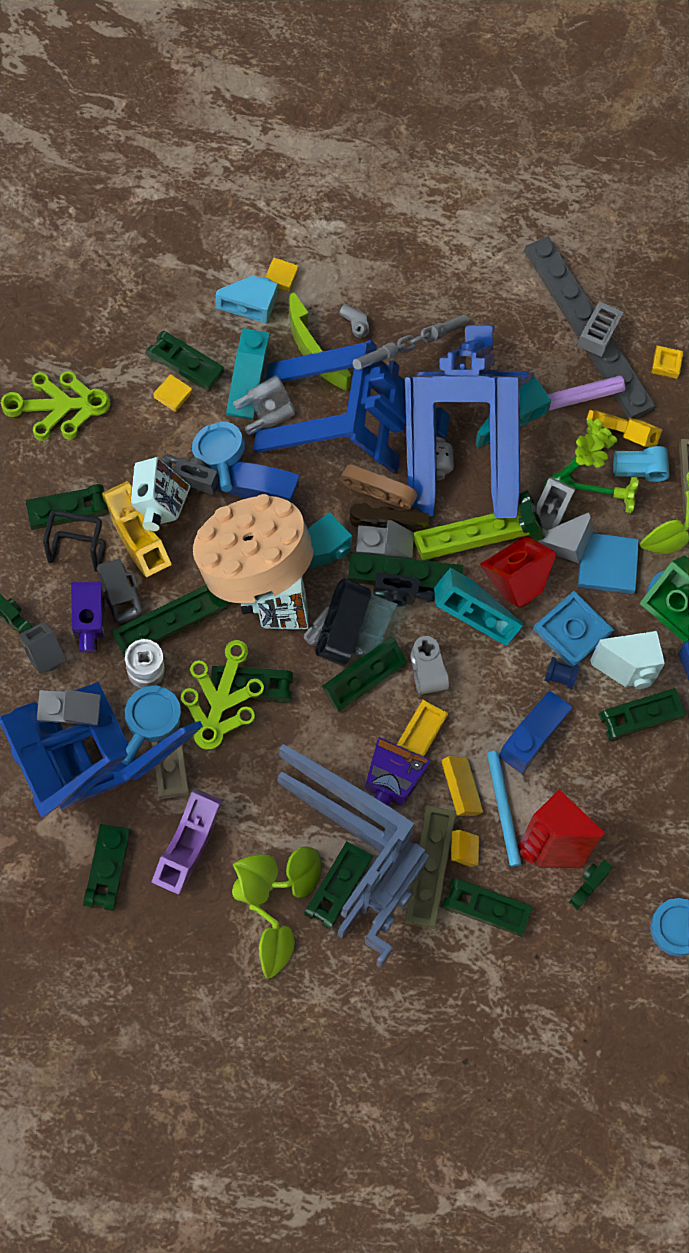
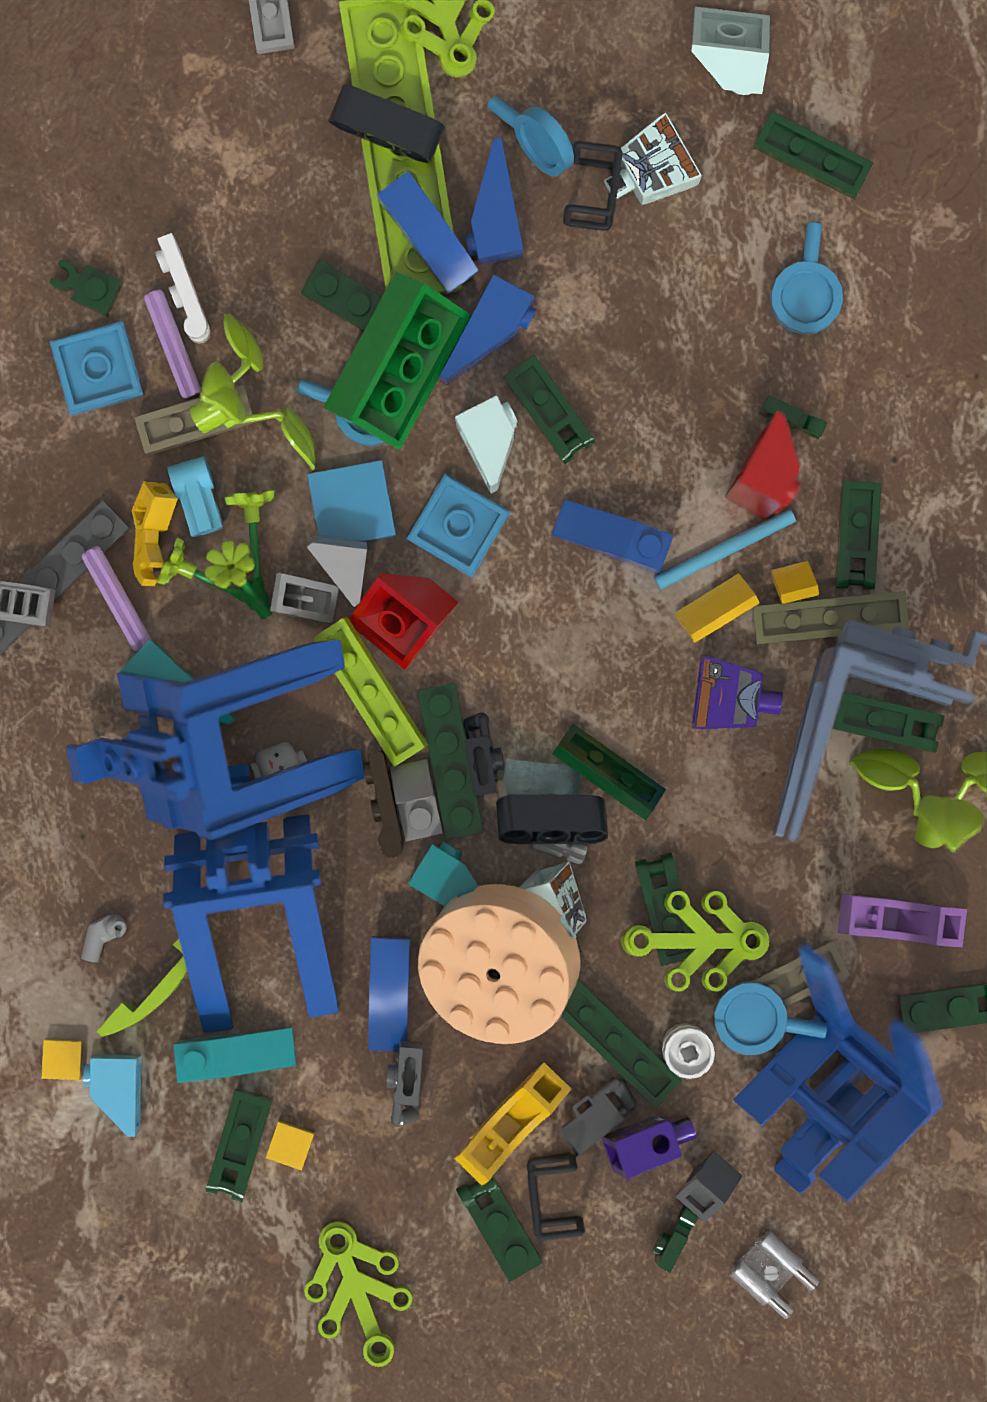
camera: 95 degrees left, 20 degrees up
(69, 707) = (788, 1122): light grey slope -> none
(157, 493) = (458, 1112): light aqua torso -> none
(219, 448) = (356, 1057): dark azure piece -> none
(269, 403) = (269, 1011): clear piece -> none
(378, 487) = (346, 831): medium nougat beam -> none
(390, 350) = (165, 873): light grey piece -> none
(423, 728) = (658, 679): yellow tile -> none
(429, 670) = (579, 690): light grey piece -> none
(475, 607) = (476, 663): teal slope -> none
(530, 520) = (337, 619): dark green plate -> none
(562, 673) = (527, 524): dark blue bush -> none
(667, 362) = (27, 500): yellow tile -> none

